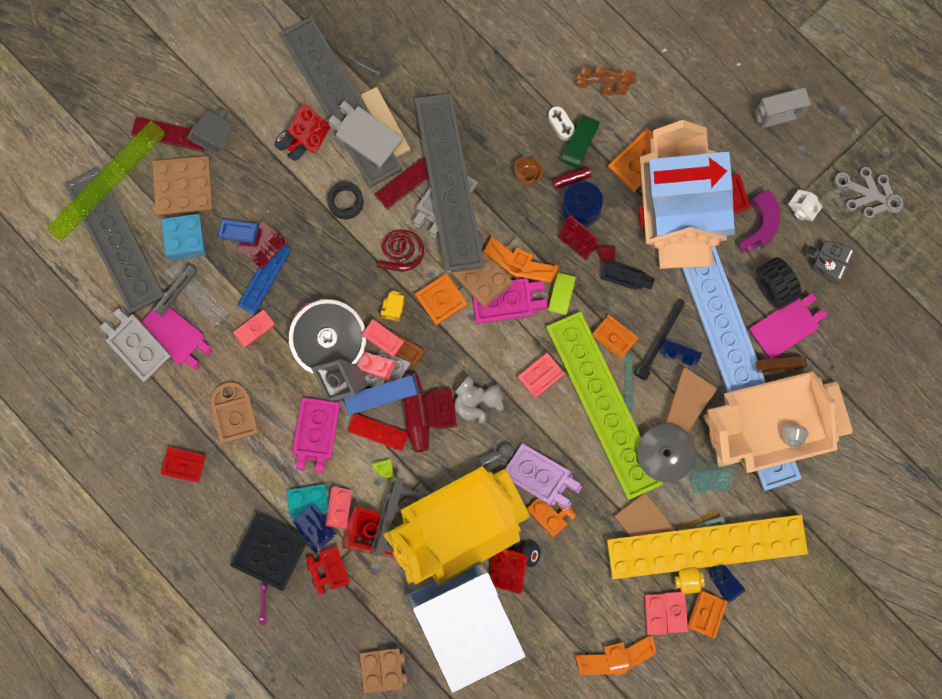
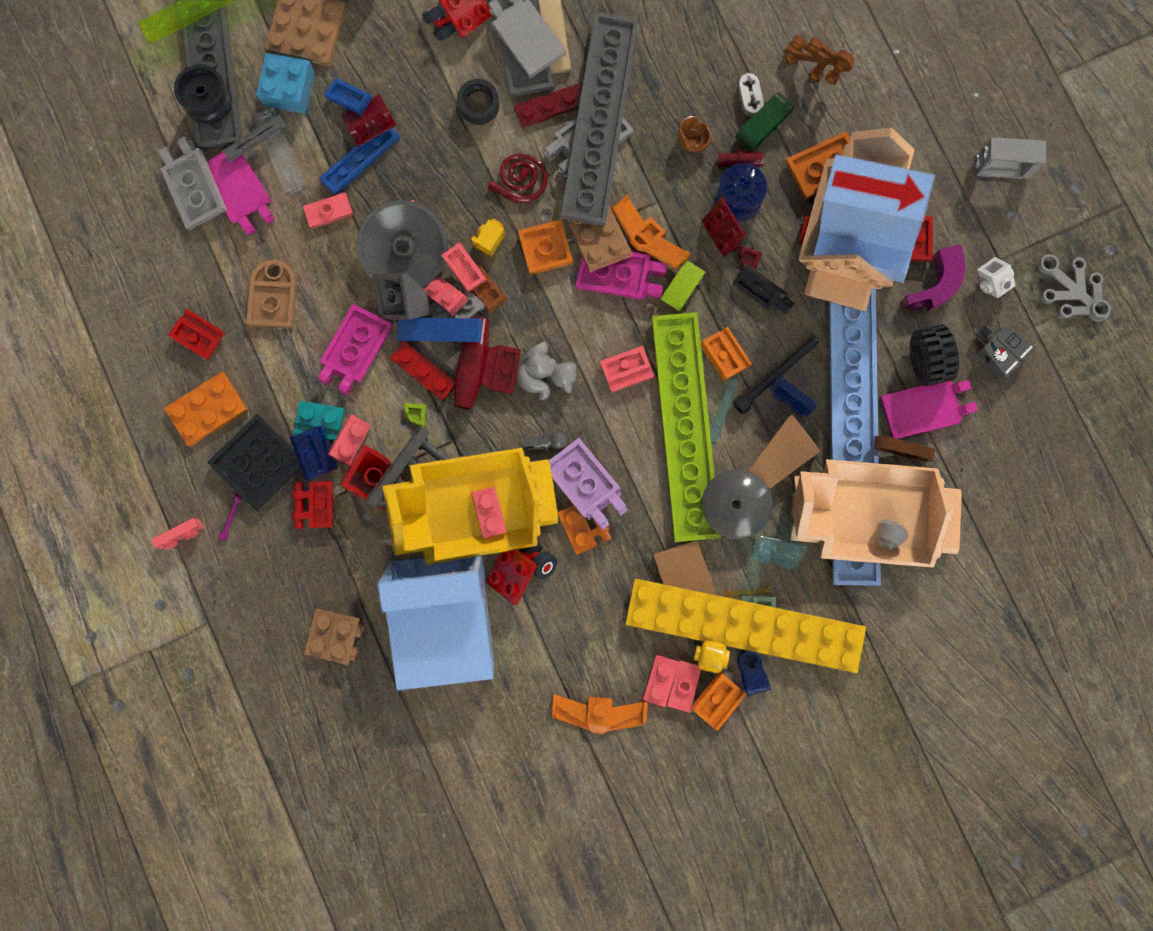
camera: 20 degrees right, 5 degrees up
(123, 258) = (203, 94): none -> black wheel
(212, 523) = (206, 409): none -> orange plate
(232, 626) = (185, 530): none -> coral plate
(473, 526) = (488, 512): none -> coral plate

